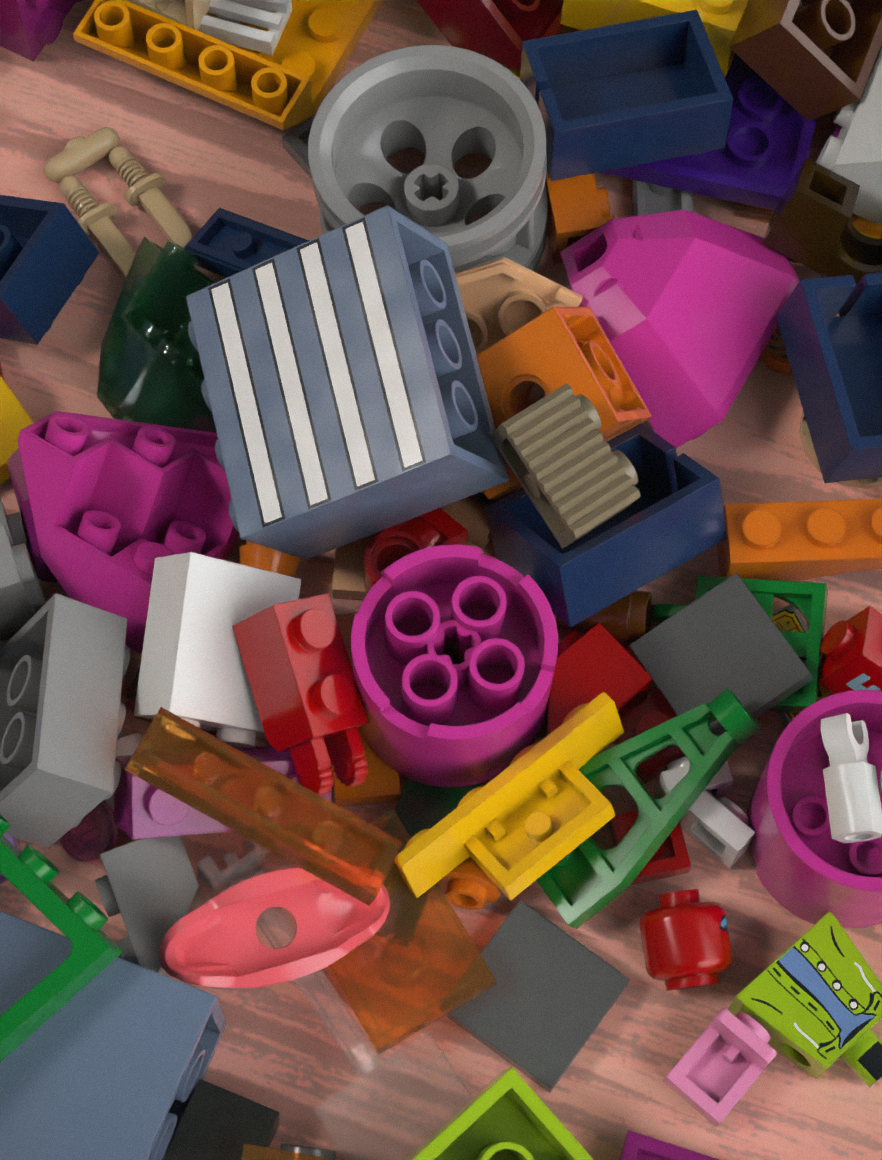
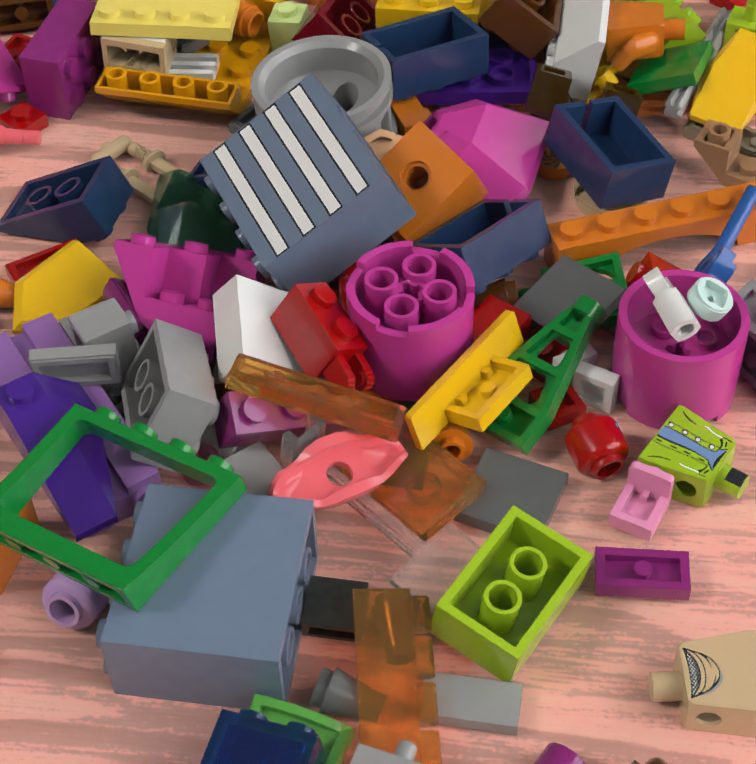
camera: 10 degrees left, 20 degrees down
(566, 464) = (450, 193): dark tan brick -> none

